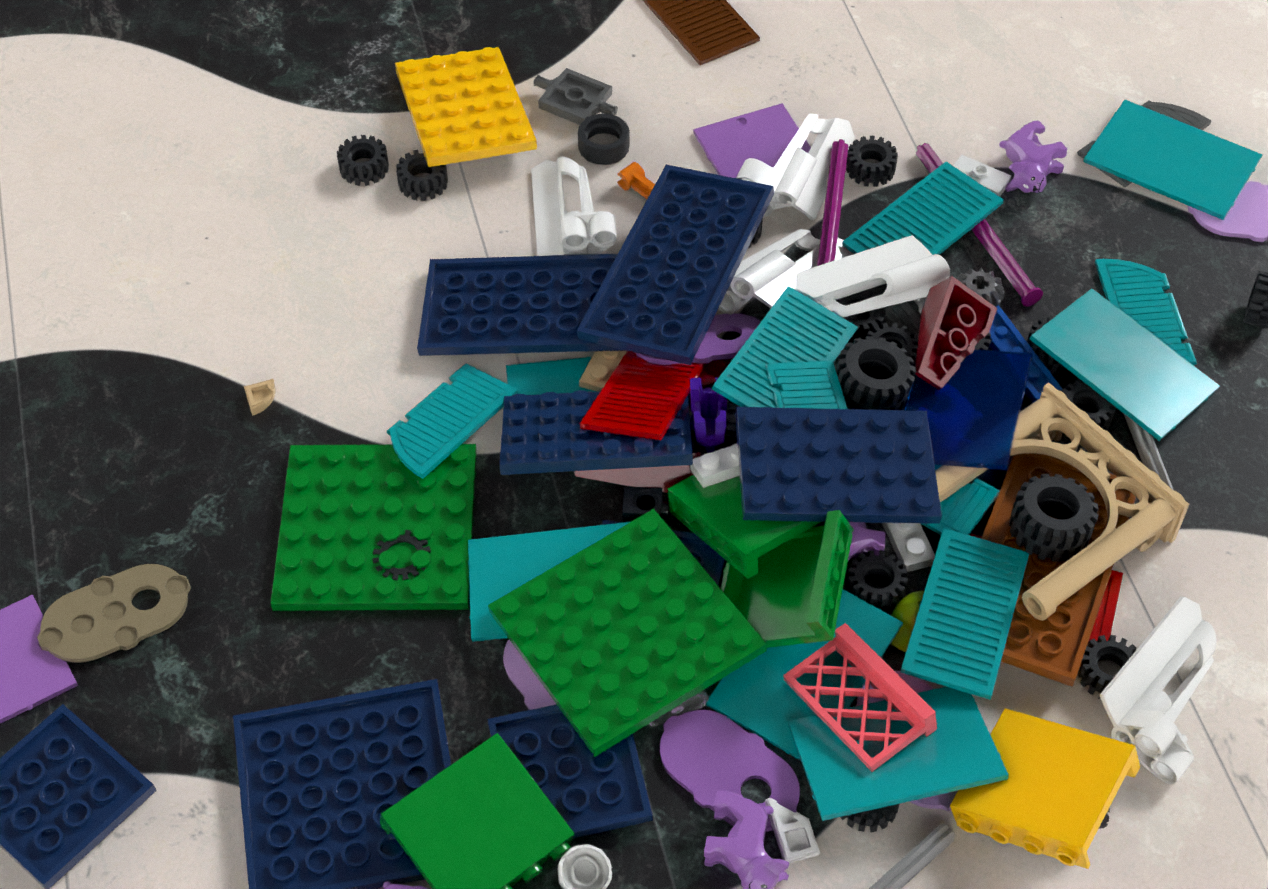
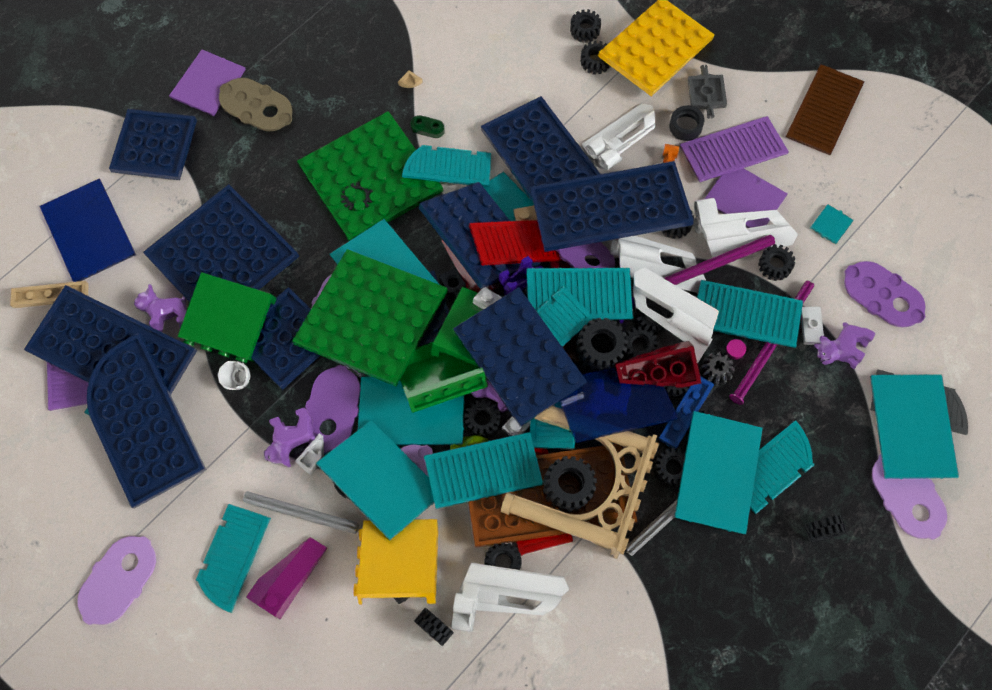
camera: 60 degrees right, 15 degrees up
(359, 414) = (426, 127): none -> dark green plate
(677, 117) = (733, 149): none -> medium lavender window
(854, 88) = (831, 224): none -> teal piece
(886, 685) = (410, 455): coral fence -> none
(960, 262) = (735, 349): none -> dark pink tile
(974, 95) = (876, 290): none -> medium lavender piece
(1167, 796) = (433, 626): none -> black tyre

